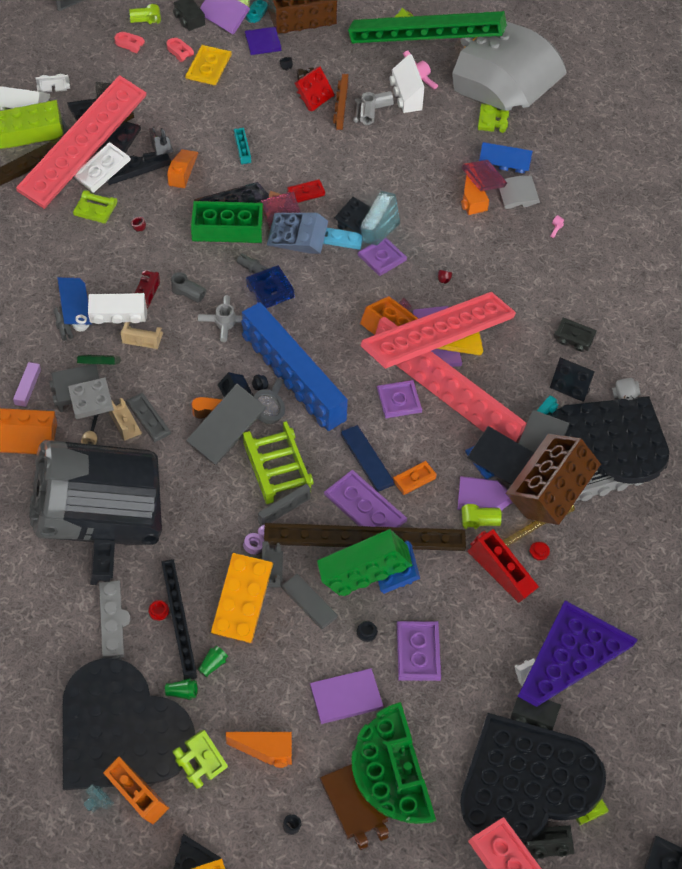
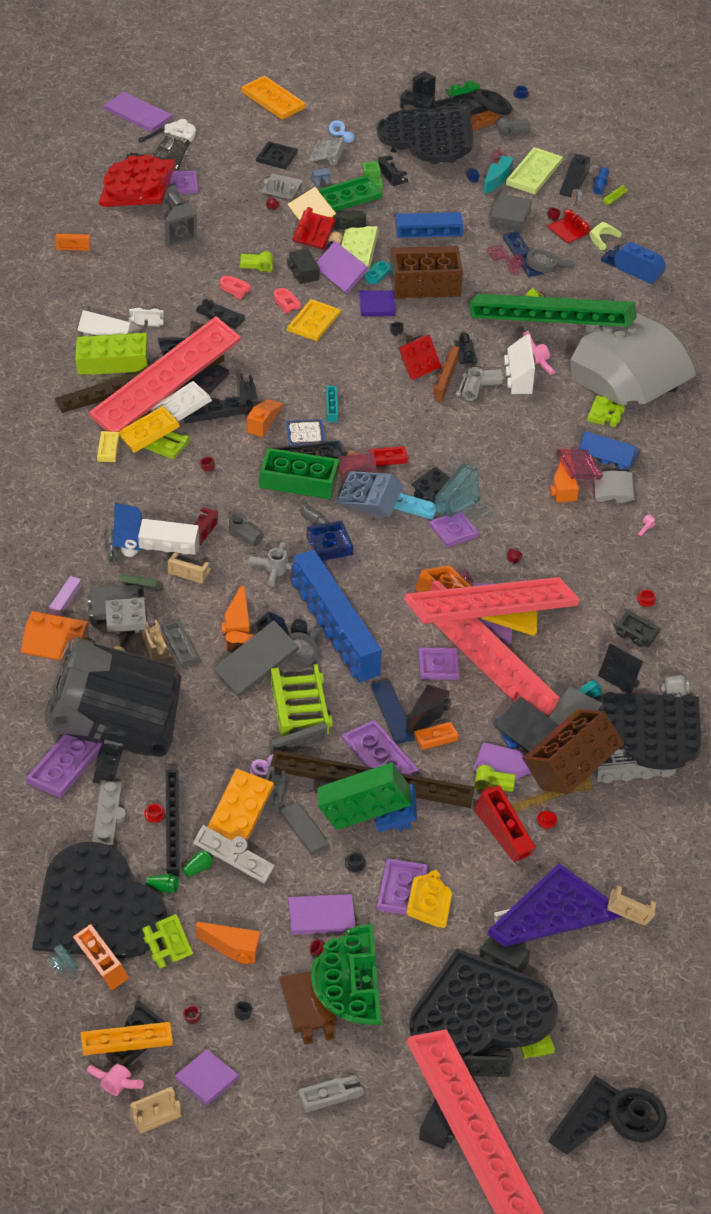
camera: 10 degrees right, 10 degrees down
(40, 219) = (108, 446): none -> light yellow plate
(58, 571) = (63, 765): none -> medium lavender plate
(76, 197) = (148, 429): none -> yellow tile
(126, 71) = (227, 316): none -> black hinge
(198, 380) = (236, 615): none -> orange slope
(223, 178) = (305, 432): none -> tile
(243, 833) = (195, 1010): none -> dark red hinge
(248, 644) = (234, 853): none -> light grey hinge
(350, 736) = (317, 947): none -> dark red hinge
(355, 79) = (466, 350): none -> black hinge
(402, 449) = (428, 708): none -> black slope
(449, 661) = (429, 899): none -> yellow tile
(575, 300) = (646, 598): none -> red plate
(643, 636) = (630, 907): none -> tan hinge

